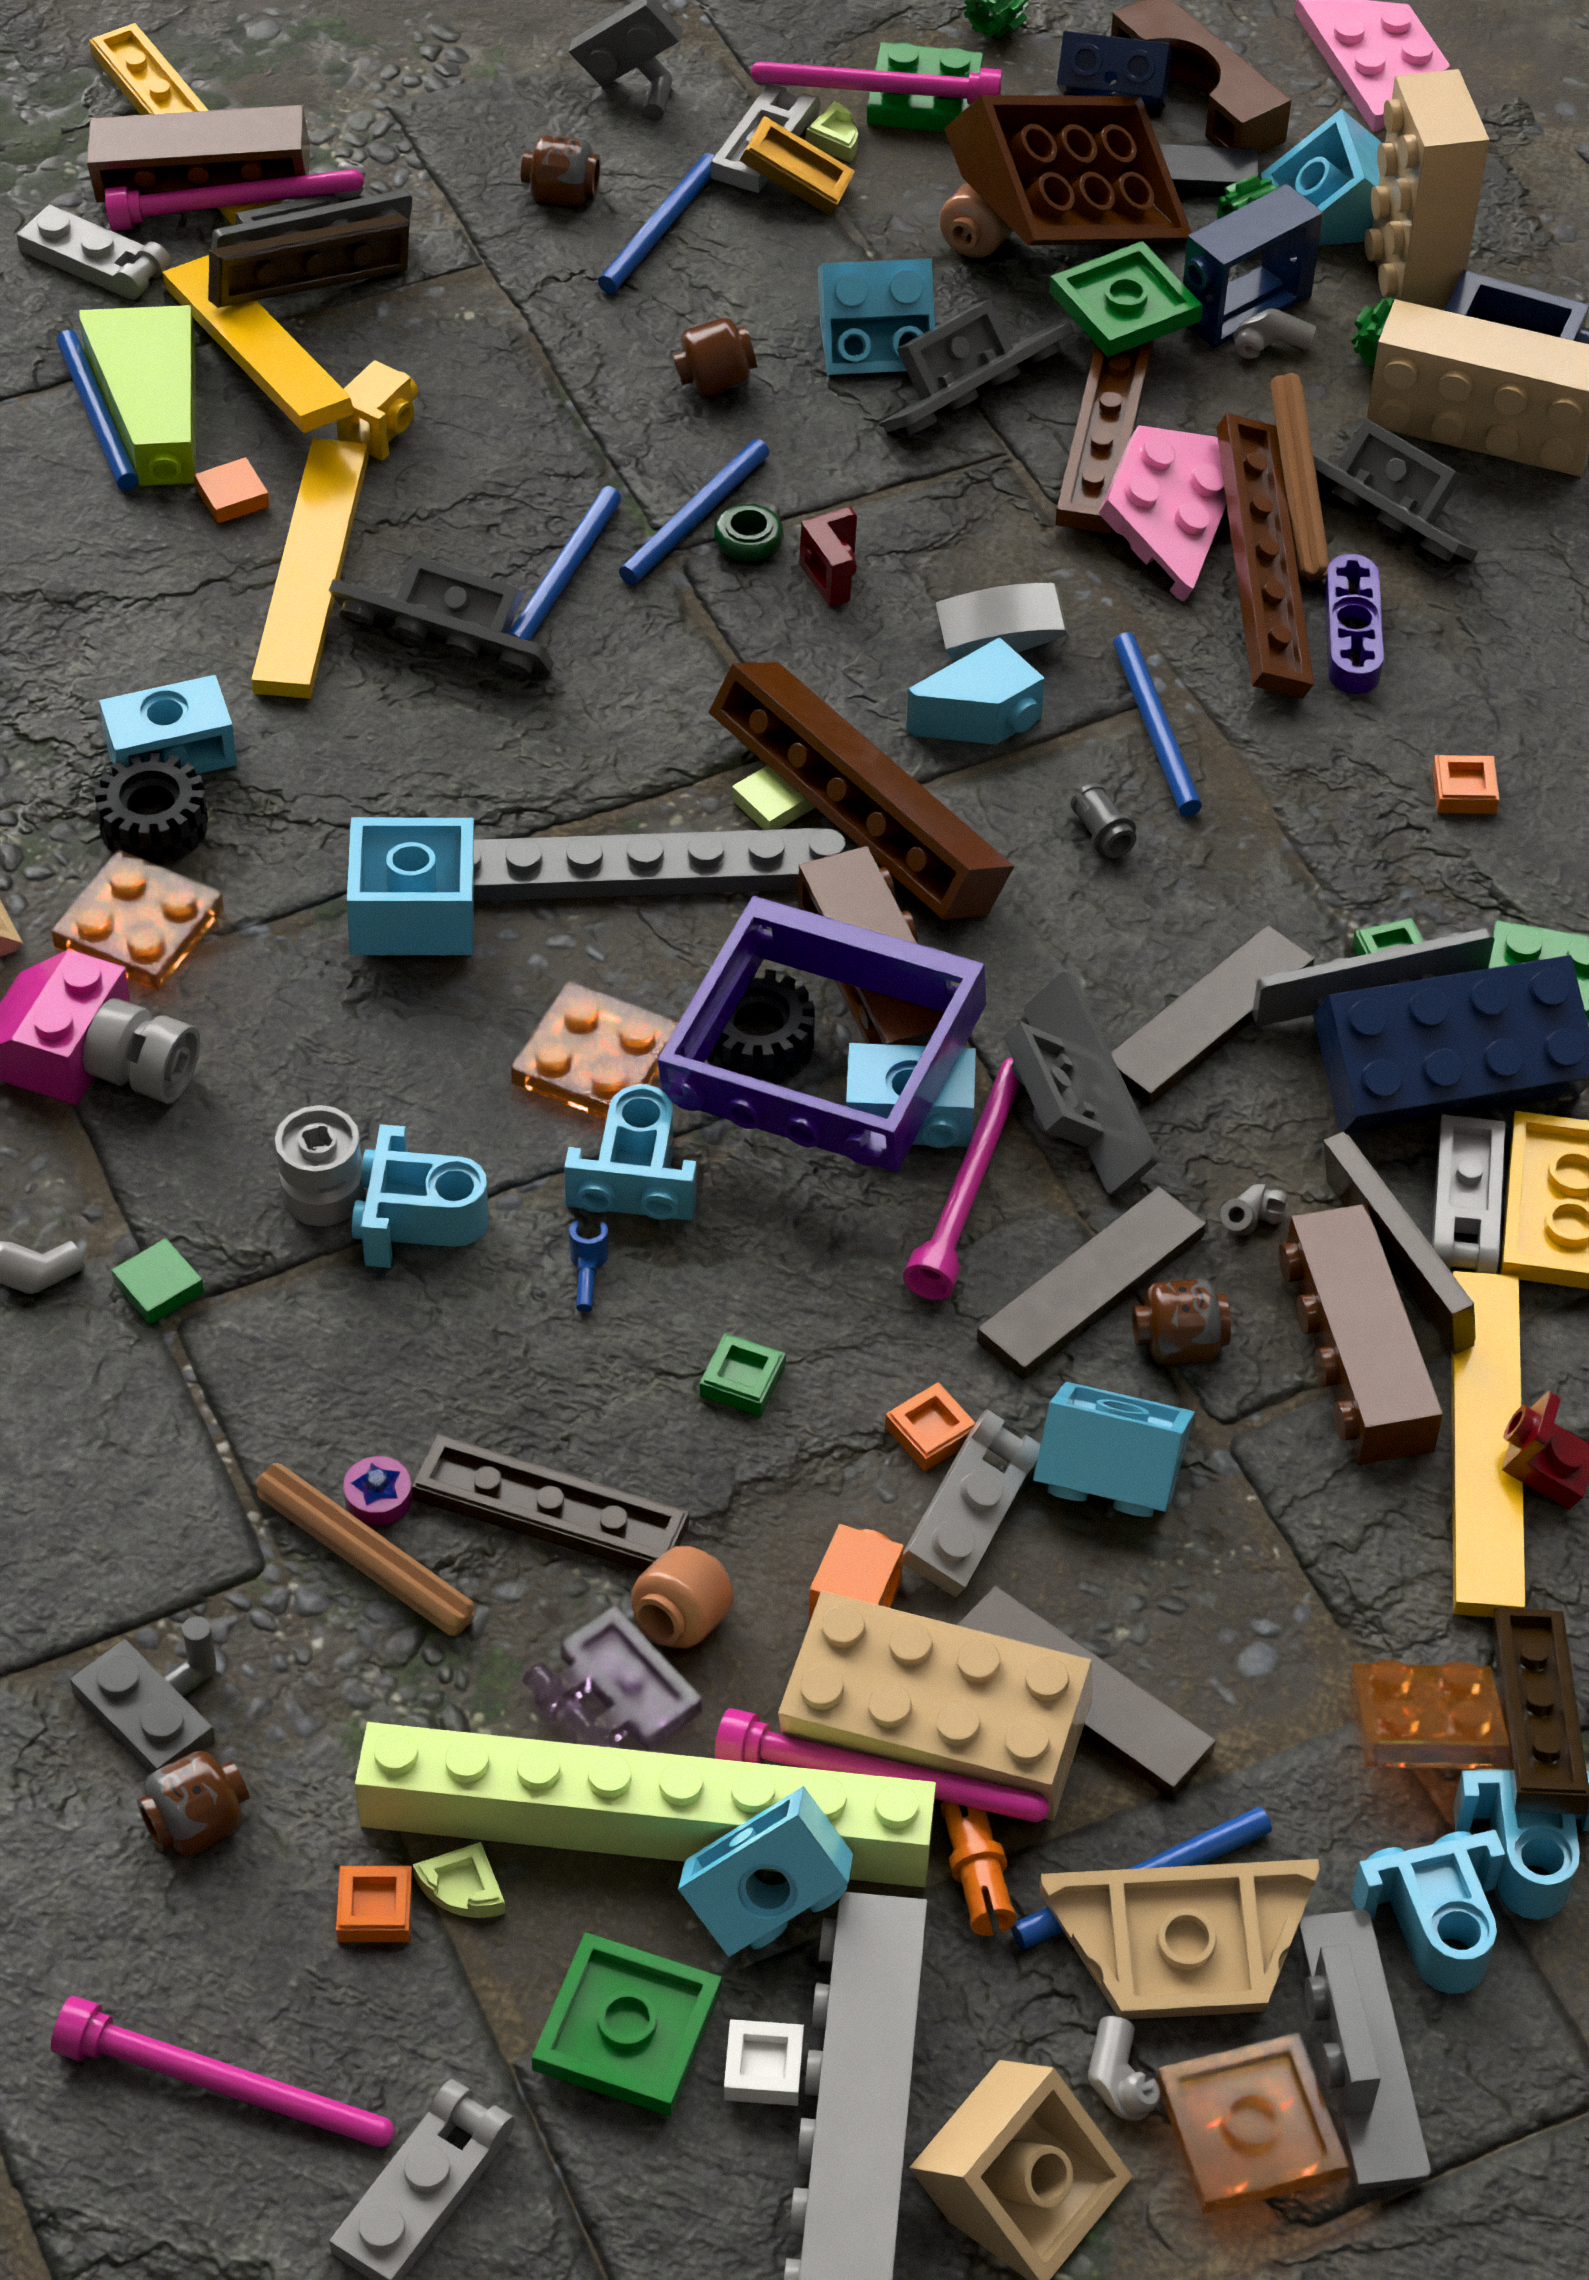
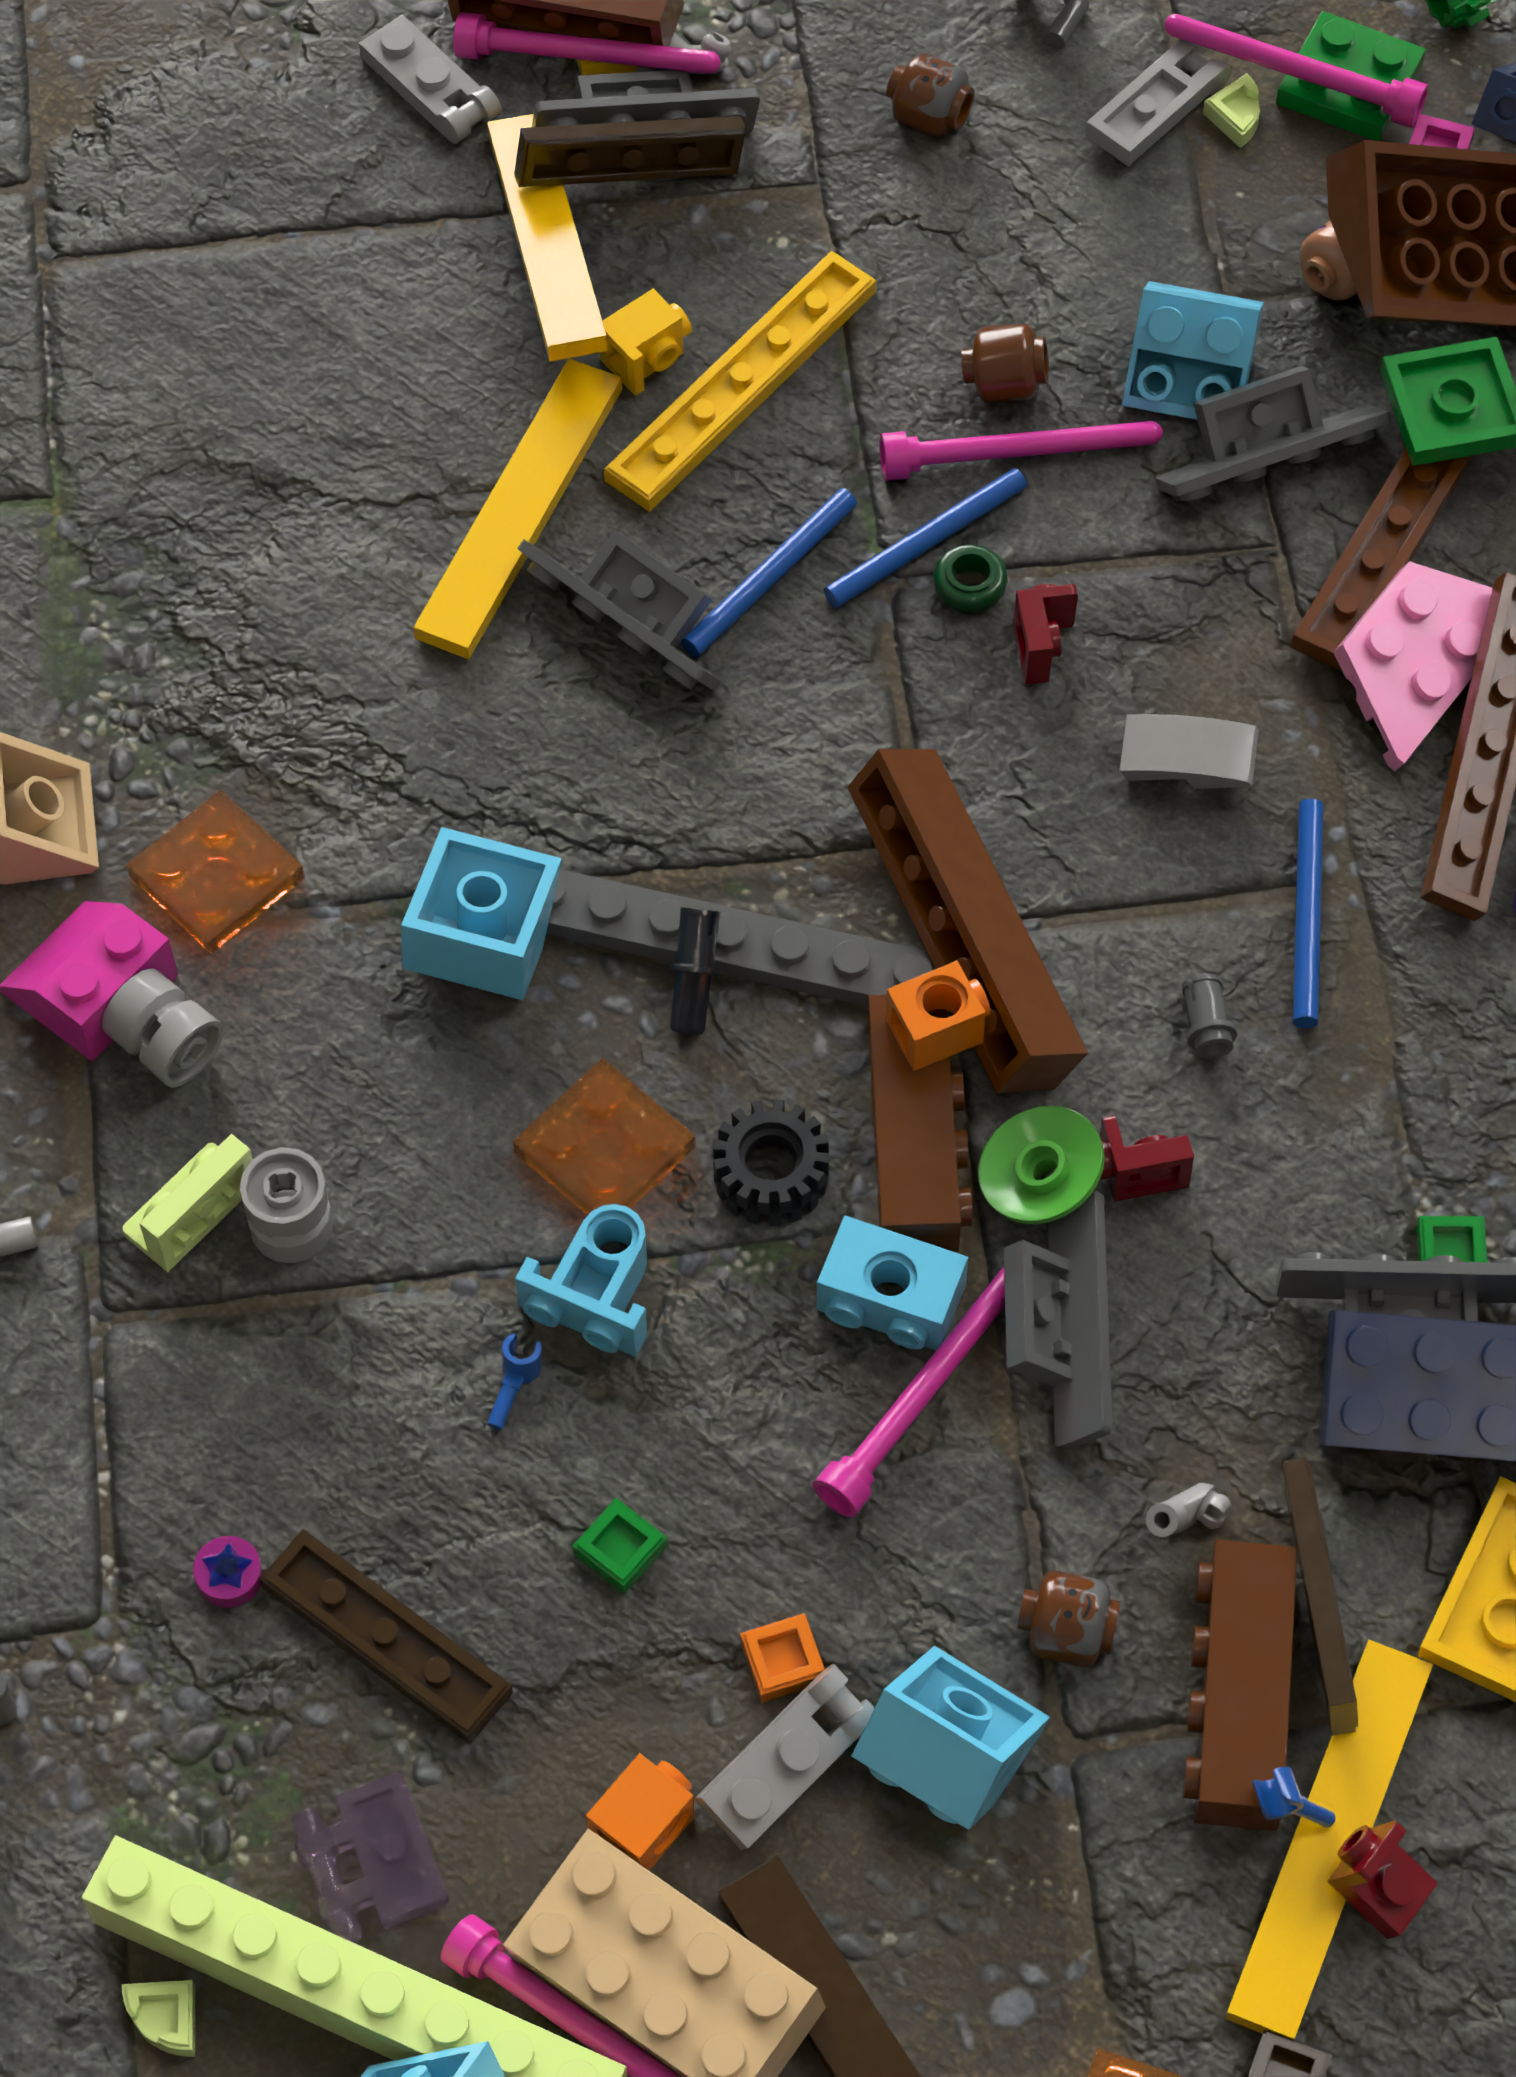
camera: 20 degrees right, 10 degrees up
(97, 410) = (371, 269): blue bar -> none
(147, 784) = (259, 723): black tyre -> none
(149, 384) = (430, 252): slope -> none
(157, 1281) = (99, 1282): tile -> none
(173, 720) = (335, 687): medium azure brick -> none
(226, 1186) = (190, 1203): none -> yellowish green bracket
(231, 490) = (471, 397): tile -> none
(365, 1549) = (194, 1632): medium nougat axle -> none
(374, 1904) = (75, 2011): orange tile -> none
(417, 1199) = (363, 1259): medium azure pin -> none
(474, 428) = (739, 381): none -> yellow tile
(626, 886) = (694, 969): none -> black axle
(649, 449) = (906, 454): none -> dark pink piece
(656, 225) = (1009, 181): blue bar -> none
(681, 1597) = (468, 1779): nougat head -> none
(769, 799) = (876, 900): yellowish green tile -> none
(797, 165) = (1175, 147): pearl gold tile -> none
(841, 954) = (872, 1121): dark purple window -> none
(871, 857) = (929, 1038): none -> orange brick
(977, 698) = (1130, 839): medium azure slope -> none
(1021, 962) = (1029, 1147): none -> bright green dish
(1090, 1283) = (999, 1543): tile -> none
(1095, 950) = (1148, 1166): none -> dark red bracket
(1203, 1016) = (1229, 1270): tile -> none
(1443, 1401) = (1282, 1798): none -> blue hand
(1468, 1191) = (1418, 1554): light grey plate -> none

